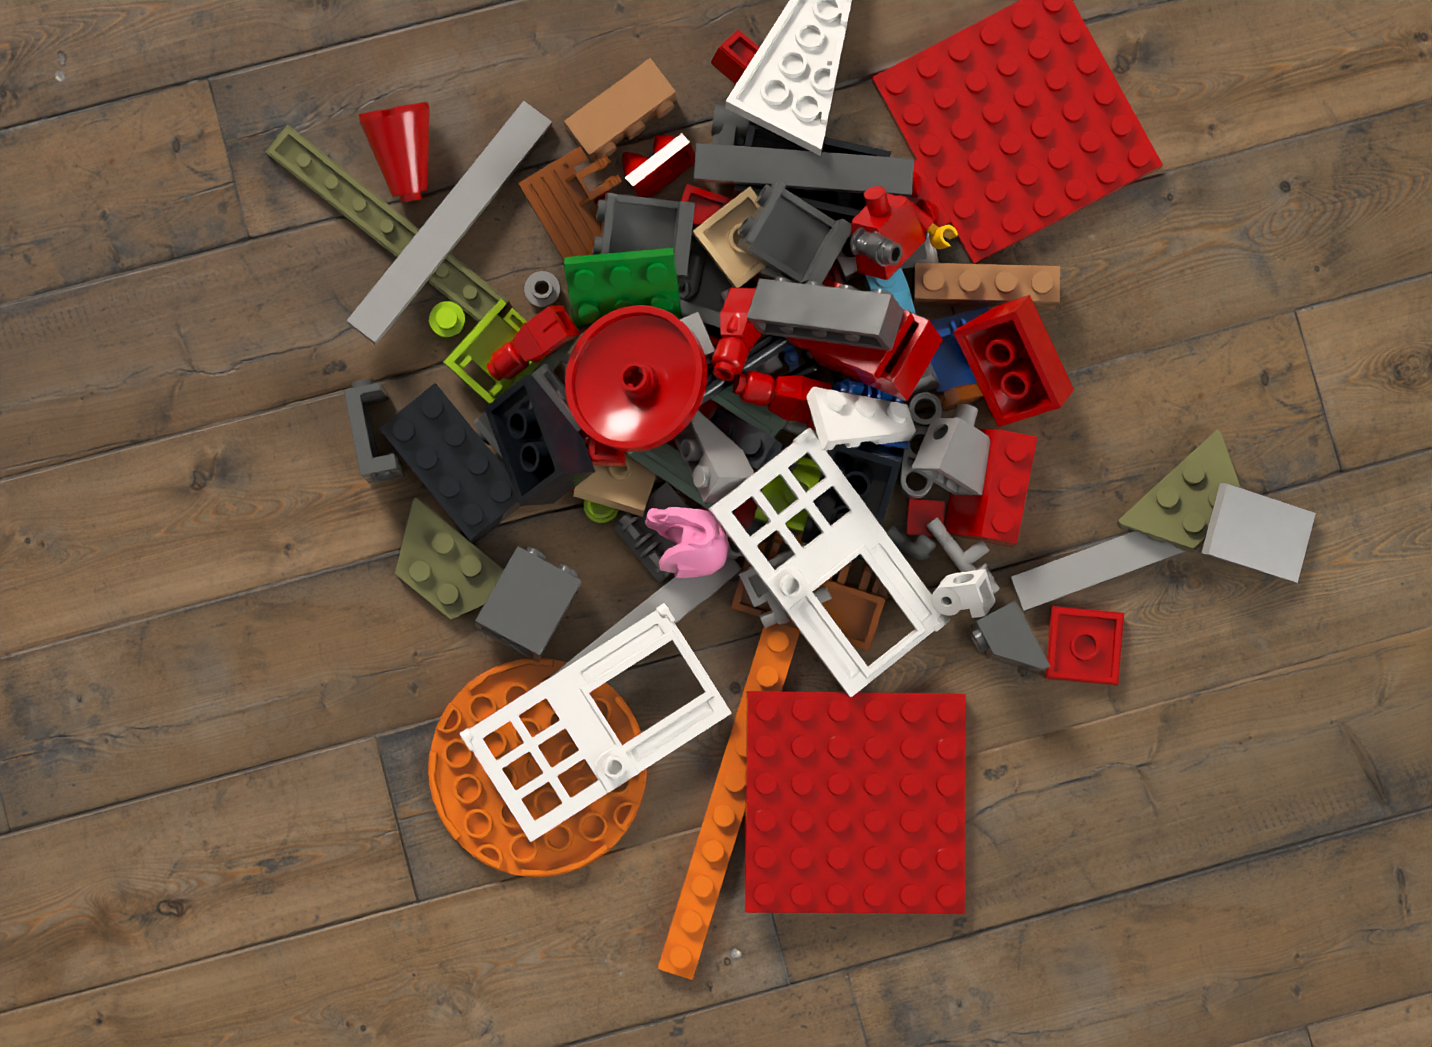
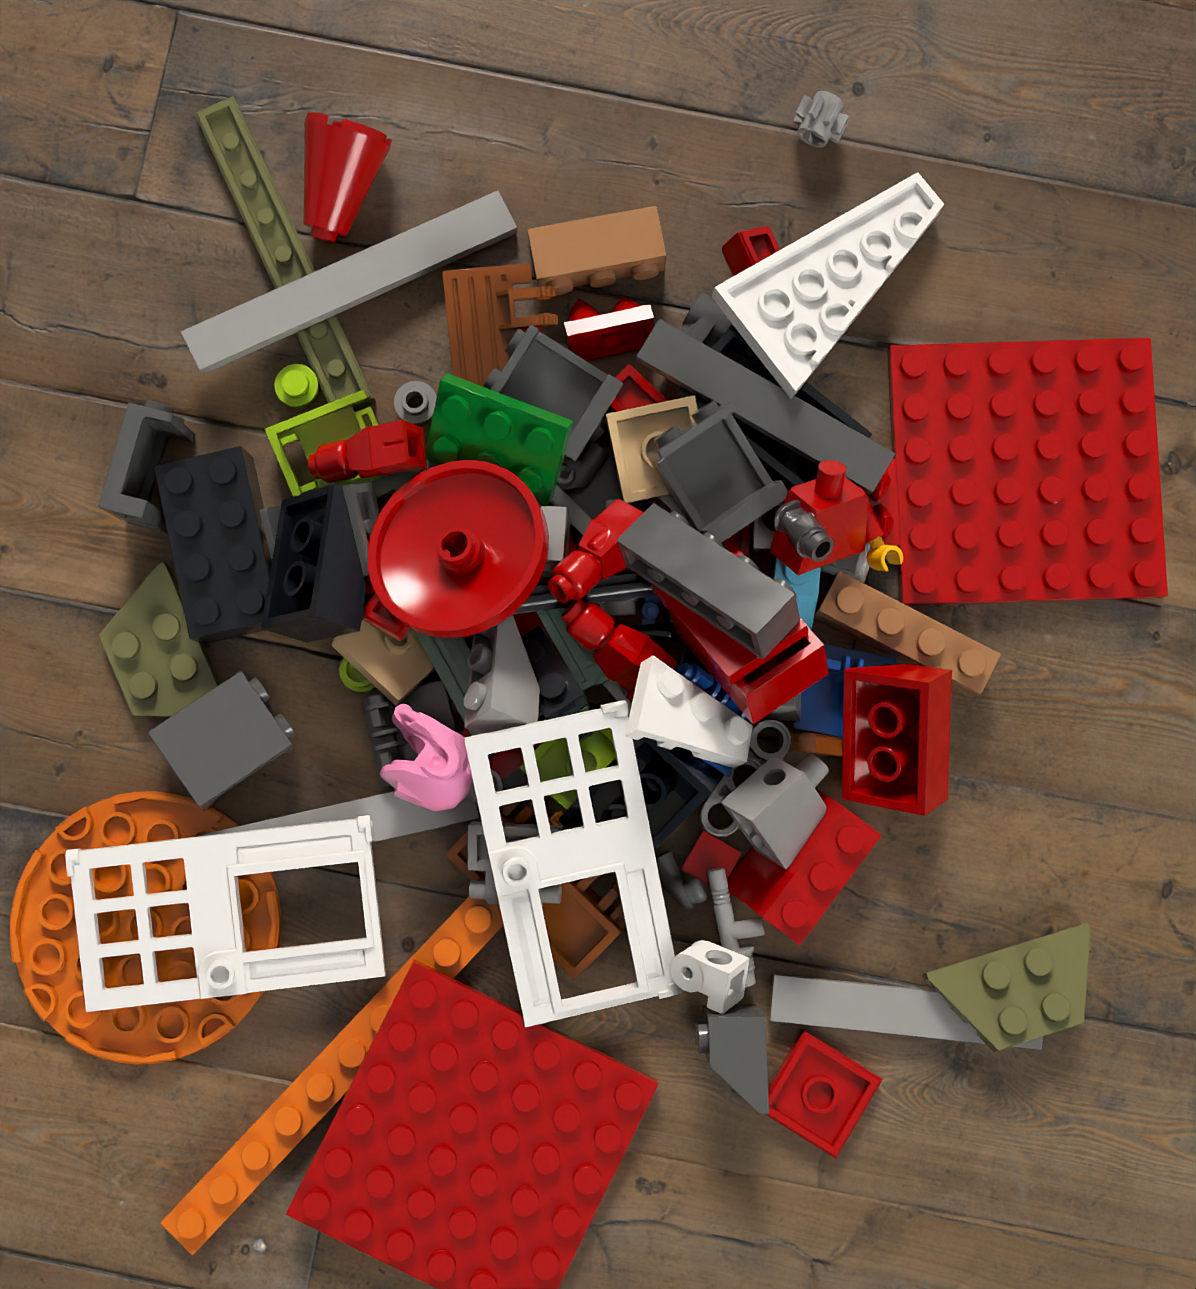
camera: 25 degrees right, 0 degrees up
(1258, 533) = (1081, 1067): light grey tile -> none

